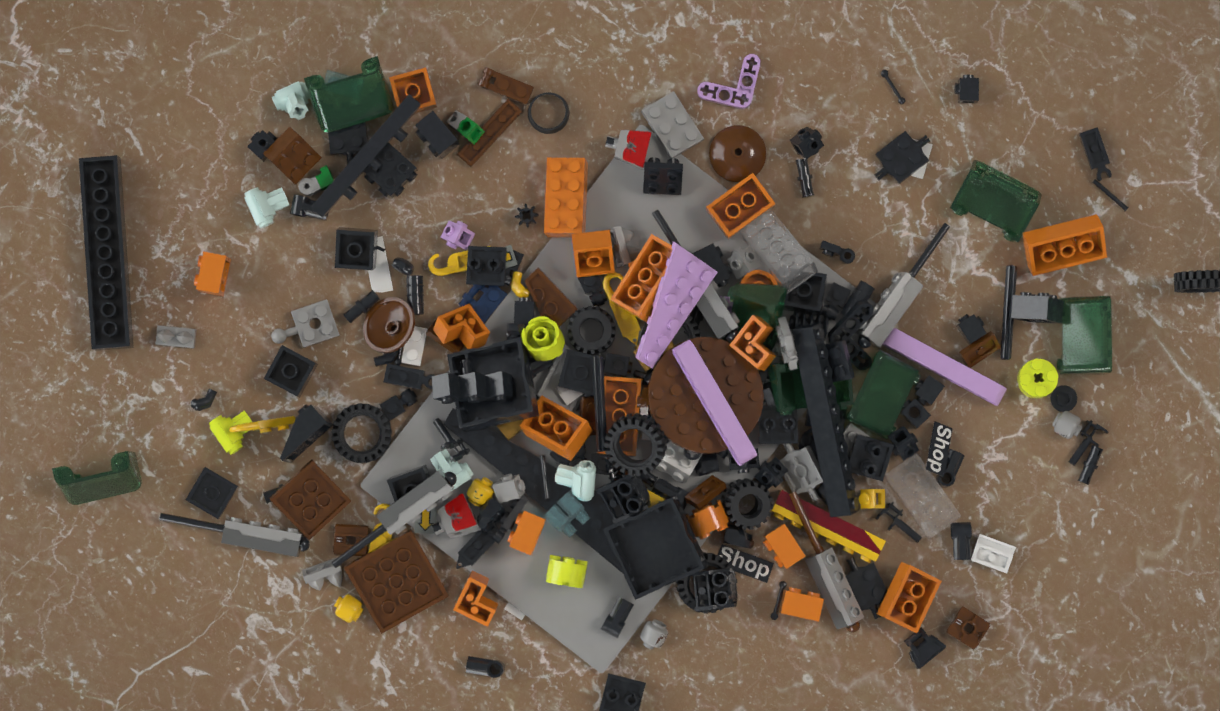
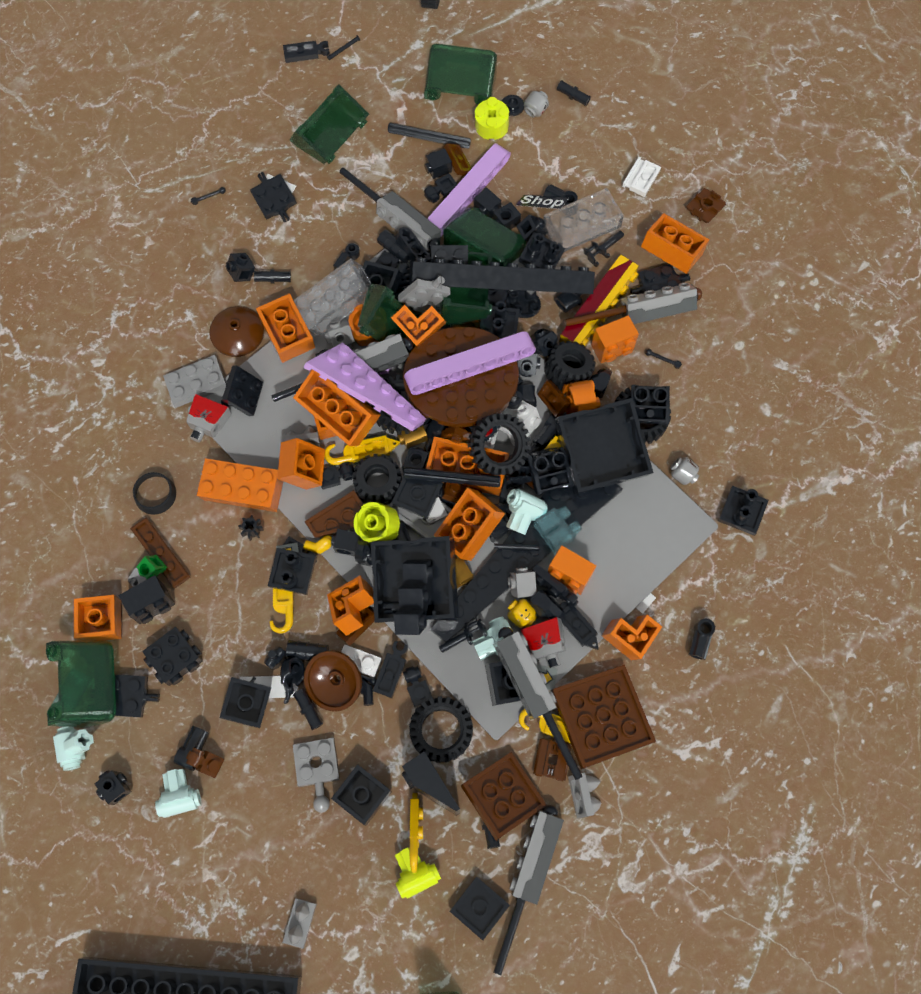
camera: 85 degrees left, 15 degrees down
(204, 403) = (379, 901): black arm -> none
(212, 273) = (238, 866): orange brick -> none
(292, 155) = (130, 755): reddish brown brick -> none
(297, 223) = (204, 762): none -> reddish brown plate
(316, 184) = (168, 735): leg -> none
(348, 608) = (625, 772): yellow head -> none
(367, 157) = (150, 673): black piece -> none
(393, 285) = (291, 673): none -> black piece
(457, 235) = (255, 597): lavender brick -> none
(488, 301) = (329, 579): dark blue plate -> none
(506, 86) = (117, 529): reddish brown plate -> none
(566, 571) = (615, 538): neon yellow brick -> none
(616, 620) = (669, 503): black piece -> none
(741, 89) = (177, 319): lavender beam -> none
(746, 563) = (626, 377): black sticker -> none
(768, 395) = (470, 323): black plate -> none
(801, 605) = (671, 332): orange brick -> none
(803, 471) = (546, 314): light grey plate -> none
(868, 498) = (579, 260): yellow brick -> none
(925, 650) = (724, 241): black piece -> none
(945, 341) = (442, 185): none -> black plate
(961, 534) = (628, 198): black piece -> none
(967, 89) = (225, 135): black brick -> none
(1037, 308) = (430, 103): brick -> none
(1065, 245) = (379, 78): orange brick -> none
(1086, 442) = (551, 93): black piece -> none

